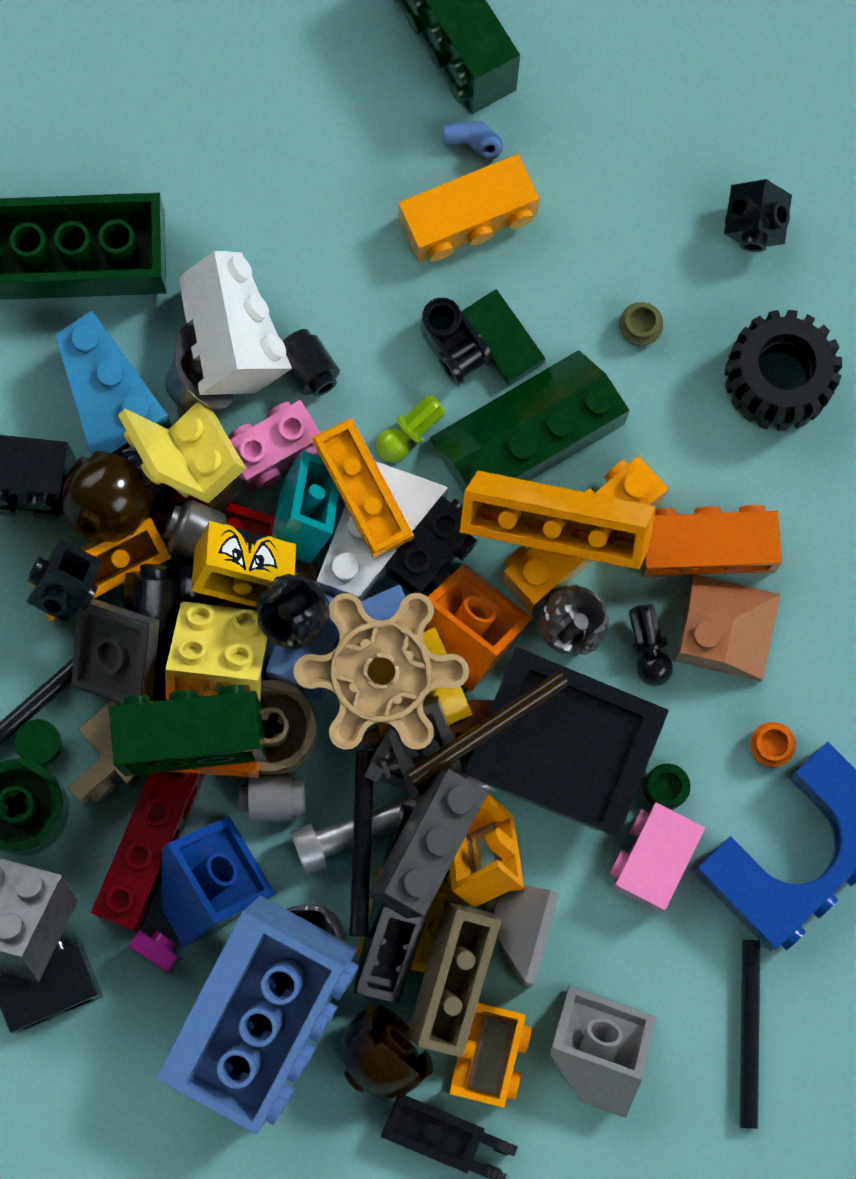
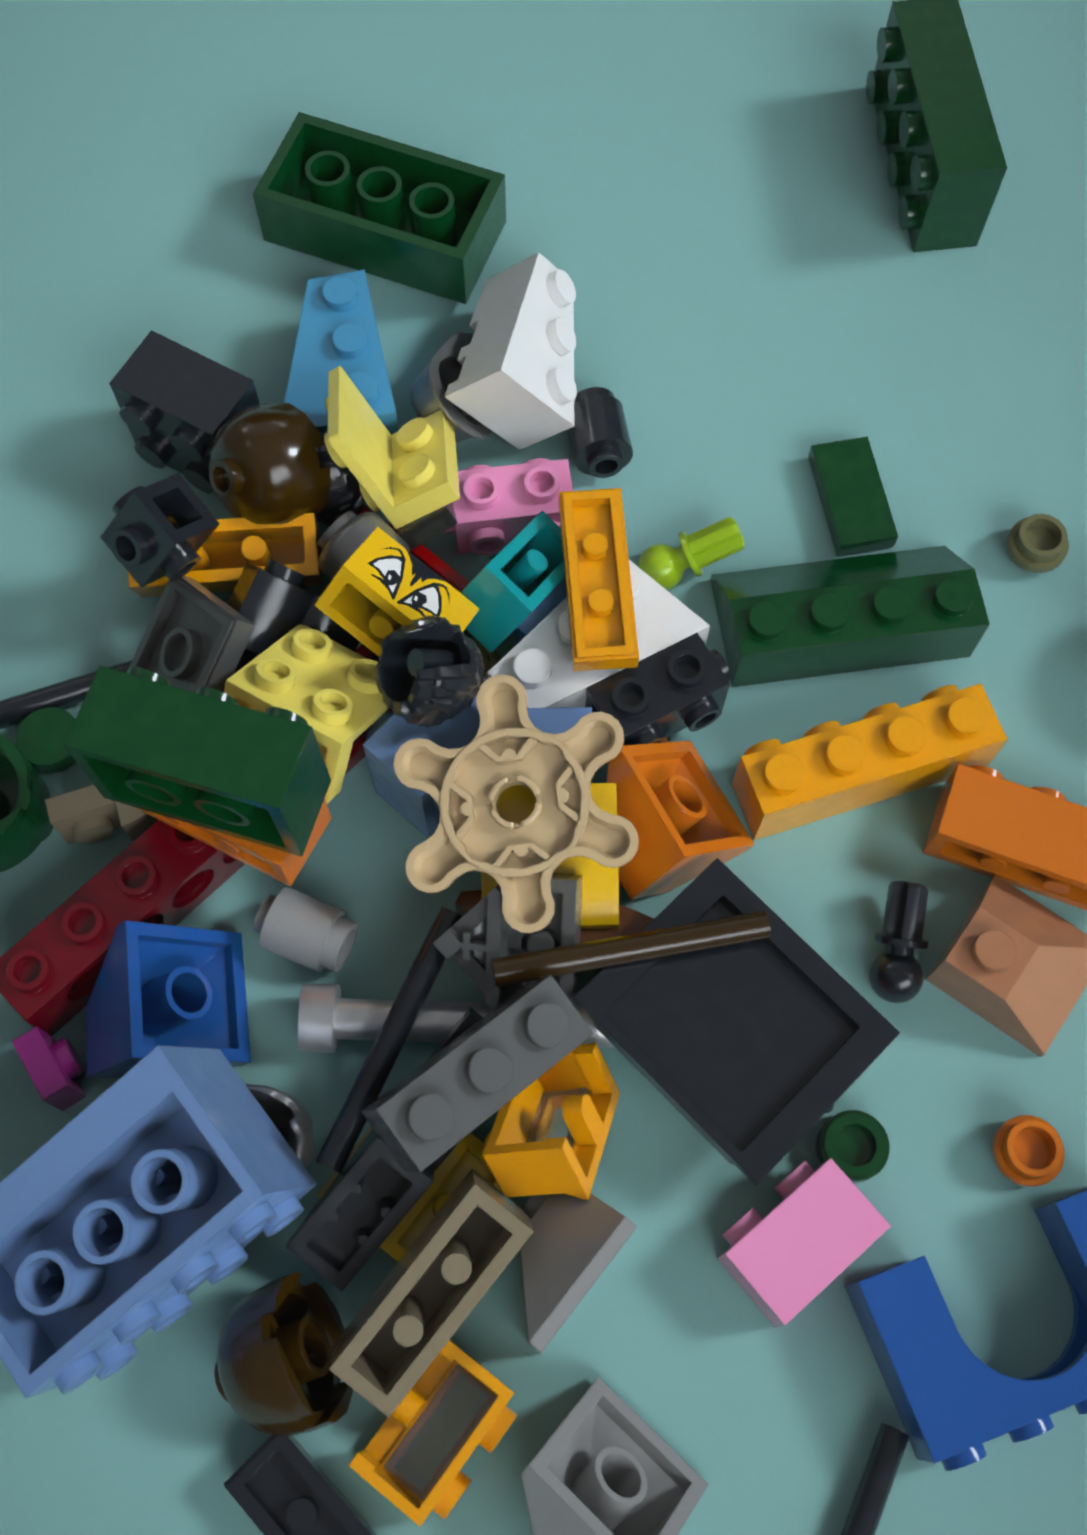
camera: 25 degrees right, 10 degrees down
(296, 718) = (371, 864): dark tan brick -> none
(457, 348) = (792, 480): black piece -> none
(469, 209) = (870, 336): light orange brick -> none
(475, 135) = (909, 269): medium blue arm -> none
(557, 519) = (844, 708): light orange brick -> none
(573, 620) = (809, 861): flat silver piece -> none

